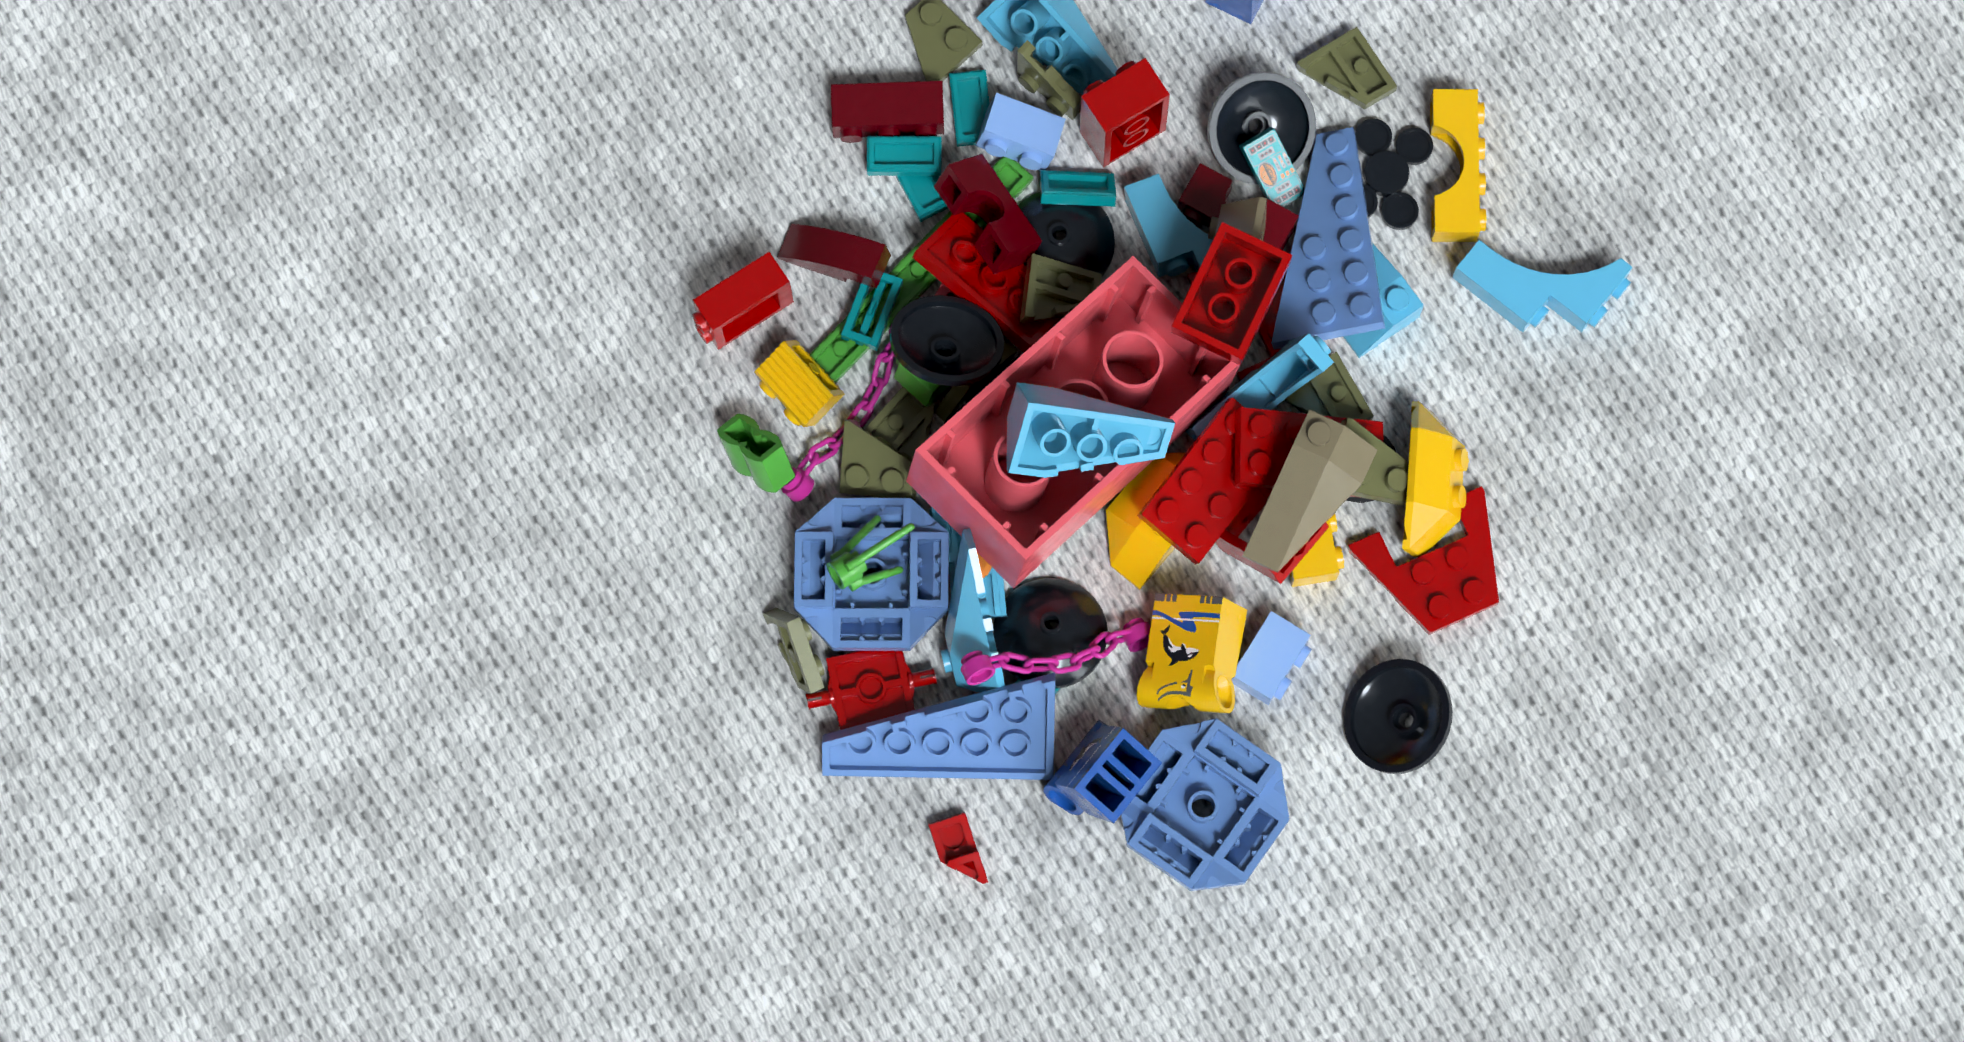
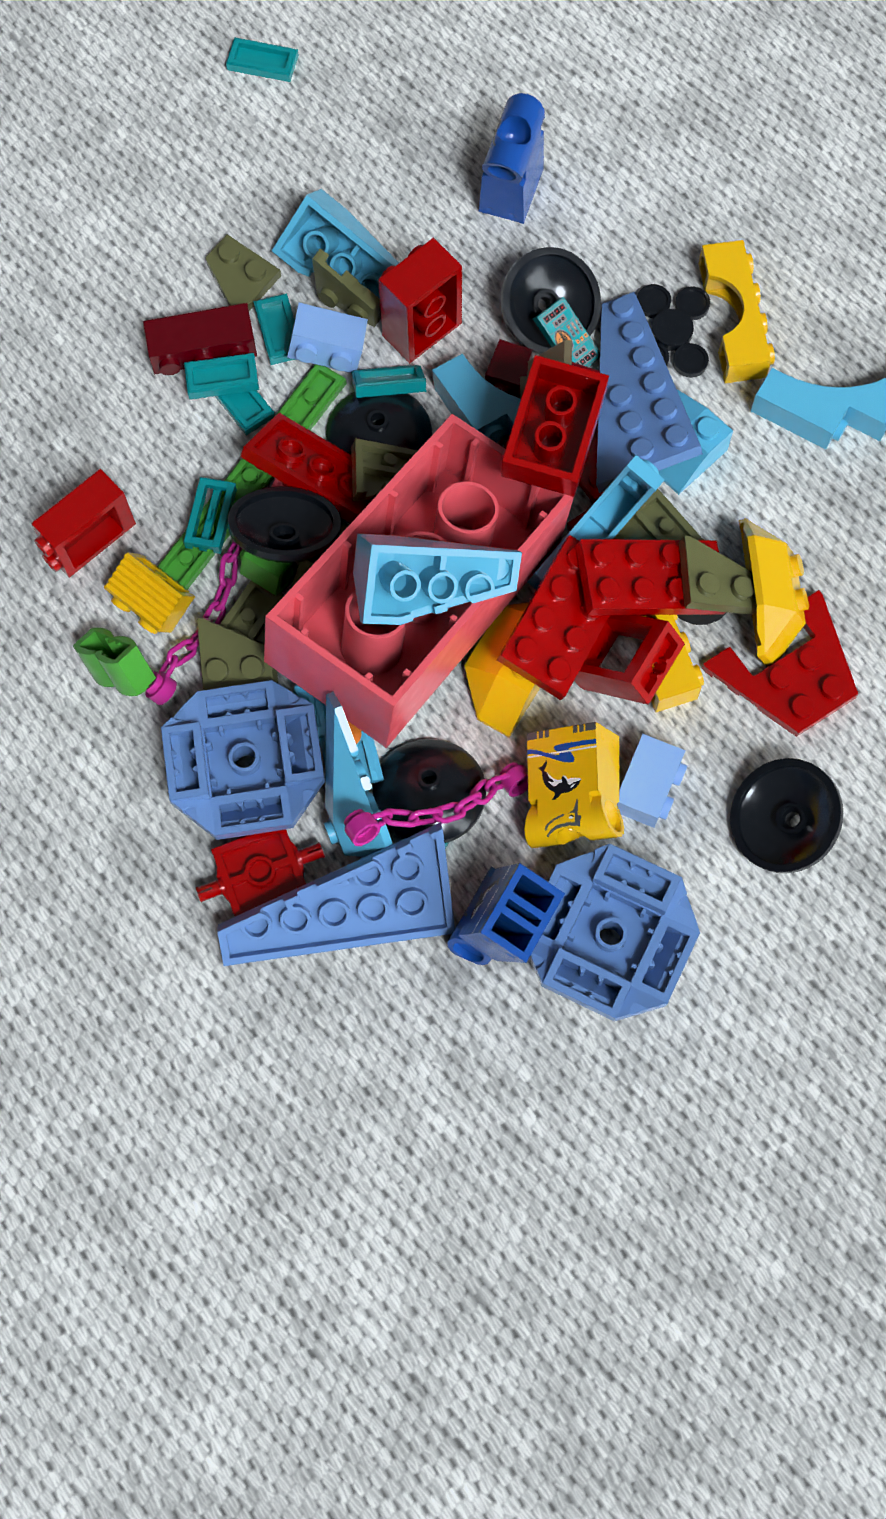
camera: 10 degrees left, 5 degrees down
(796, 650) = (179, 845): olive wing -> none
(835, 254) = (169, 470): dark red slope -> none
(848, 568) = (217, 753): bright green plant -> none
(957, 846) = (370, 1015): red slope -> none
(975, 188) = (291, 390): dark red arch -> none
(1316, 479) = (668, 593): dark tan wedge -> none
(1349, 70) = (621, 245): olive wing -> none

